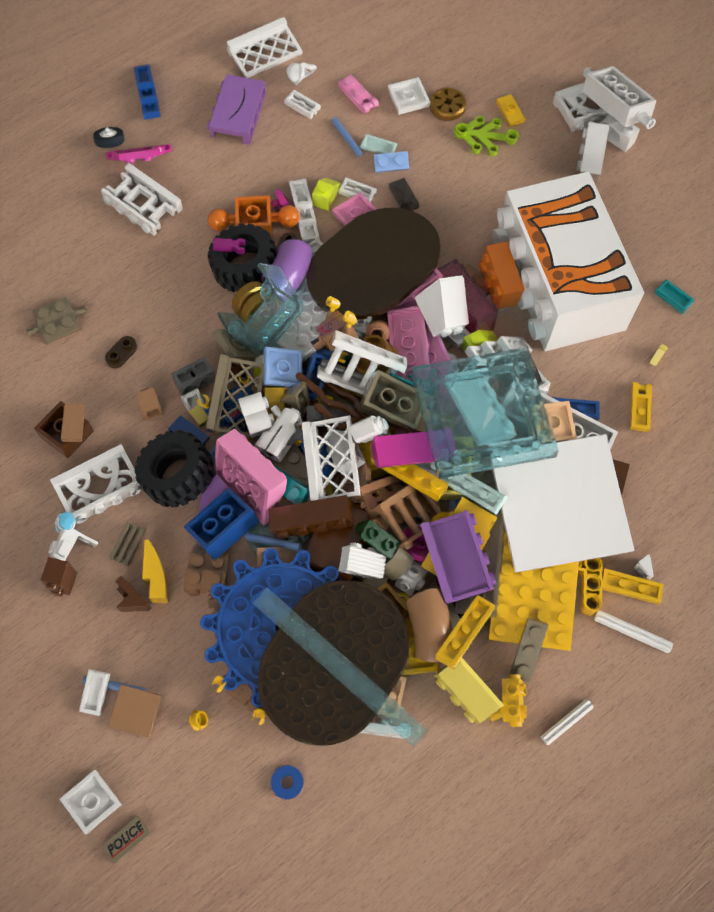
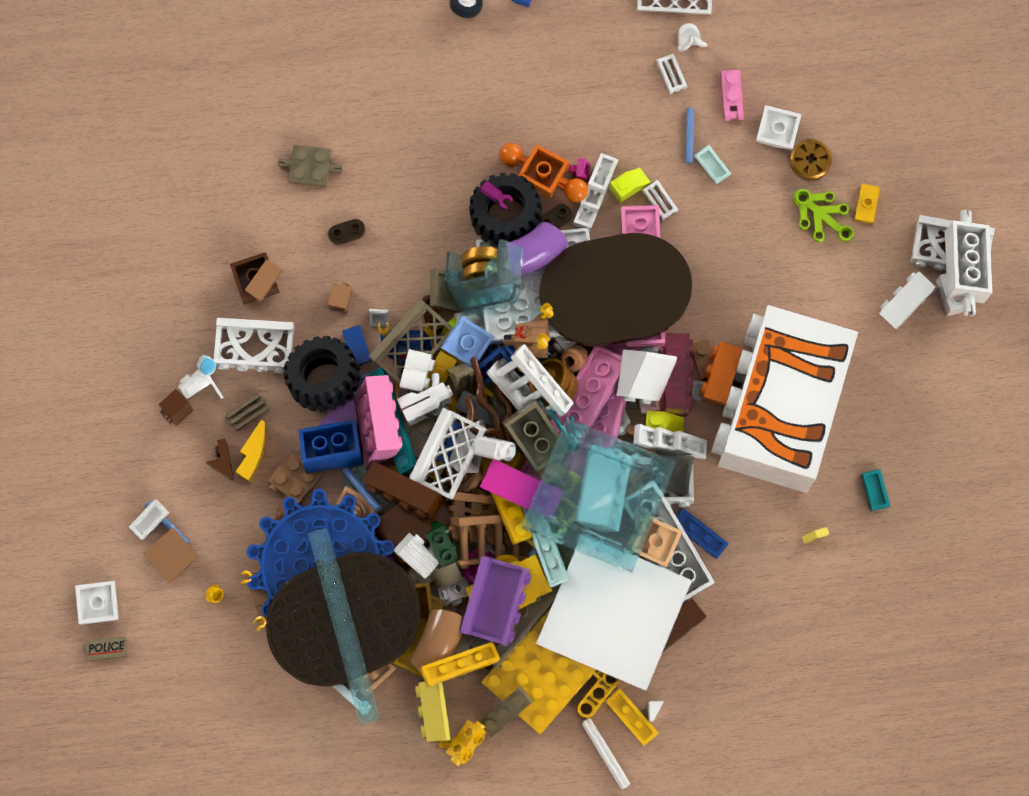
camera: 35 degrees right, 10 degrees up
(145, 153) = (482, 39): dark pink wing -> none
(148, 188) = (468, 84): white fence -> none
(193, 376) = (391, 298): dark grey brick -> none
(199, 415) = (375, 334): light yellow tile -> none
(237, 107) = (605, 43): medium lavender panel -> none
(279, 774) = (258, 693): blue piece -> none
(391, 162) = (711, 190): light blue plate -> none
(403, 195) = (698, 234): clear smoke hinge -> none
(566, 722) = (498, 786): white axle -> none
(640, 407) = (760, 572): yellow plate -> none

